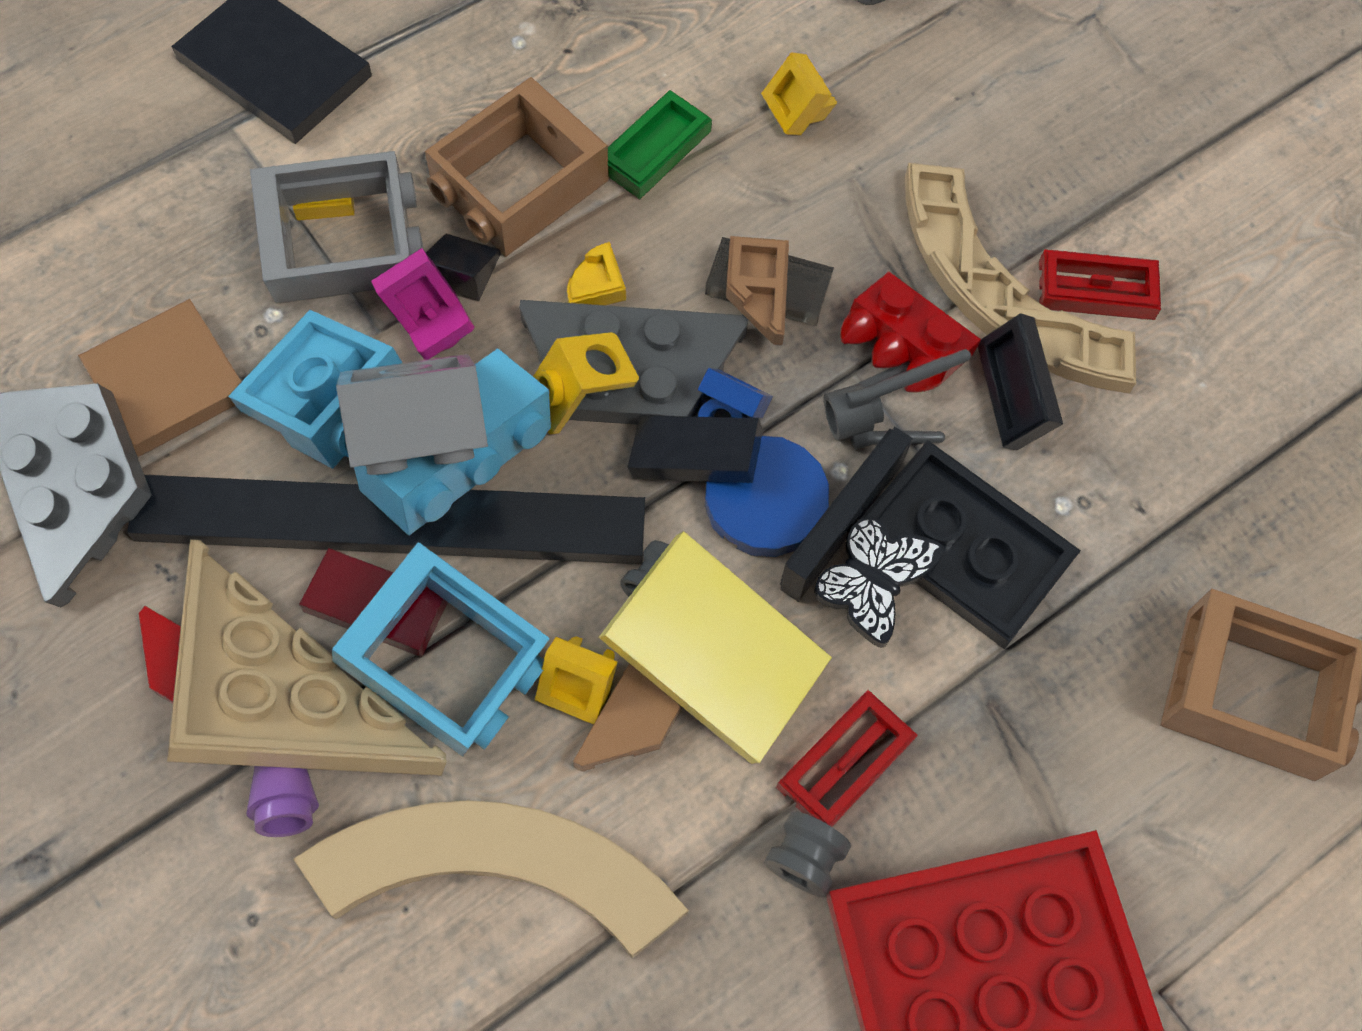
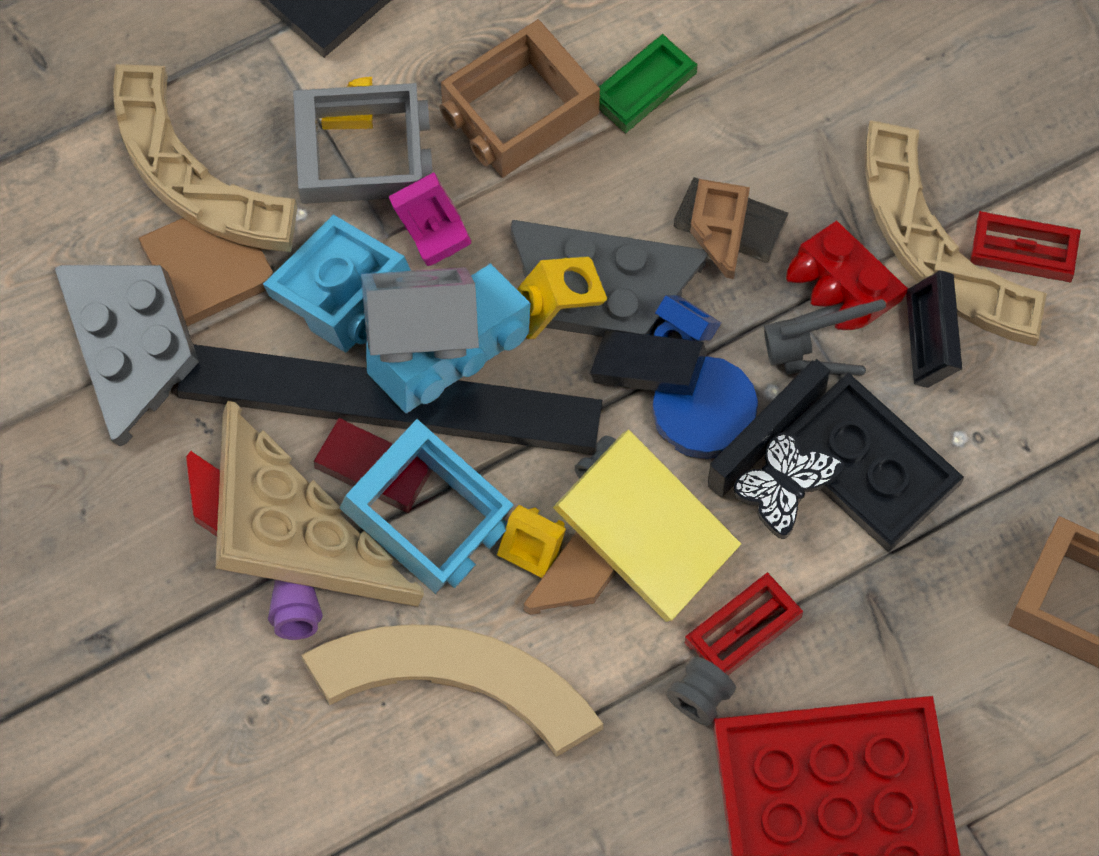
camera: 10 degrees right, 0 degrees up
(130, 286) = (184, 181): none -> tan tile
(464, 264) = (466, 182): black slope -> none
(597, 279) = (580, 205): yellow tile -> none
(798, 95) = (778, 48): yellow tile -> none

